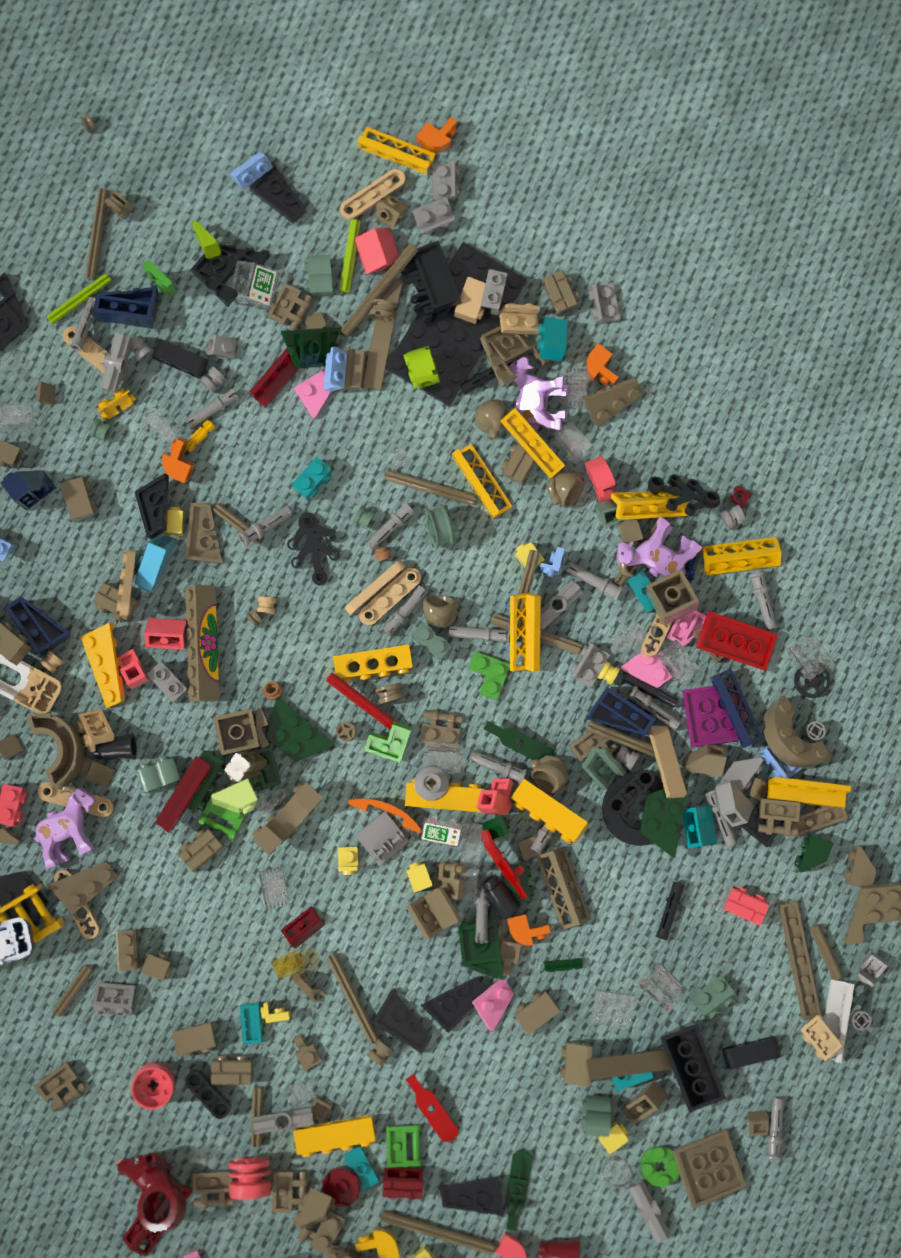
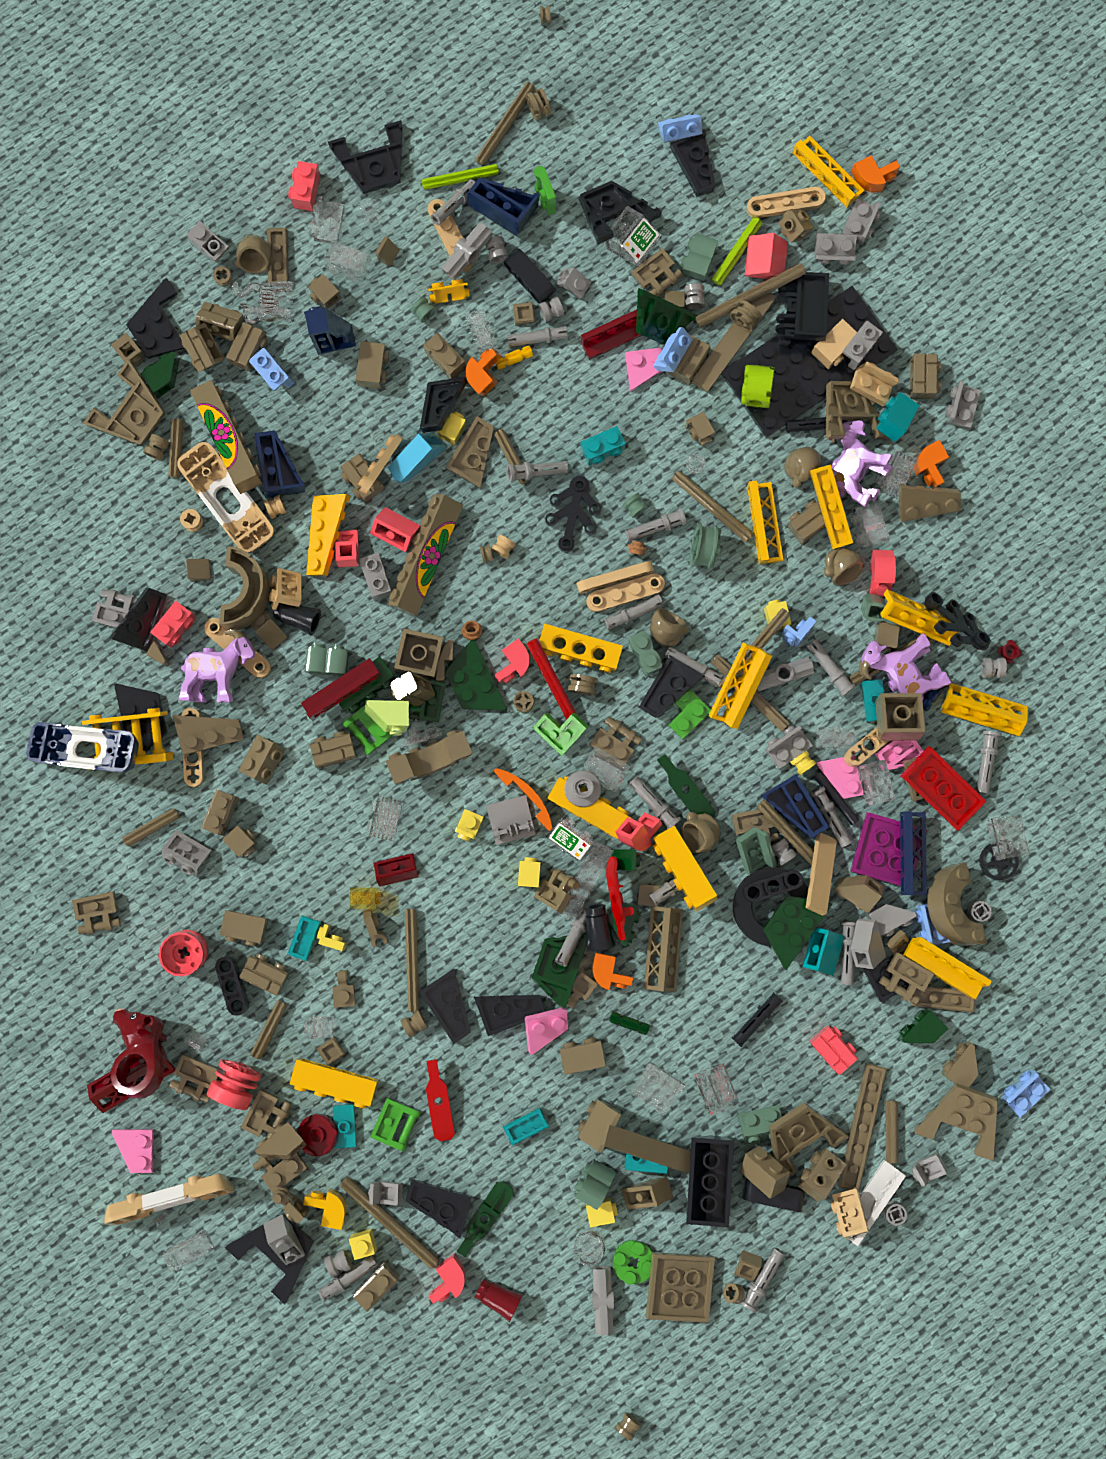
camera: 30 degrees right, 0 degrees up
(138, 463) = (444, 356): none -> dark tan brick
(142, 887) = (261, 759): none -> dark tan bracket
(190, 393) = (523, 313): none -> dark tan tile
(207, 242) = (606, 174): lime slope -> none
(296, 1118) = (277, 1041): light grey piece -> none
(325, 697) = (518, 659): none -> coral brick
(331, 312) = (694, 296): none -> light grey wheel
(389, 425) = (700, 429): none -> dark tan brick
(402, 1183) = (377, 1159): dark red brick -> none
(423, 1208) = (385, 1193): none -> light grey bracket
(433, 913) = (527, 914): dark tan bracket -> none
(464, 660) = (669, 686): none -> black wing
(516, 1094) = (525, 1126): none -> teal plate
(735, 1037) = (765, 1172): none -> dark tan brick
(746, 991) = (798, 1131): none -> dark tan wing
(761, 1155) = (727, 1293): none -> dark tan bush
(783, 1016) = (821, 1174): none -> dark tan brick

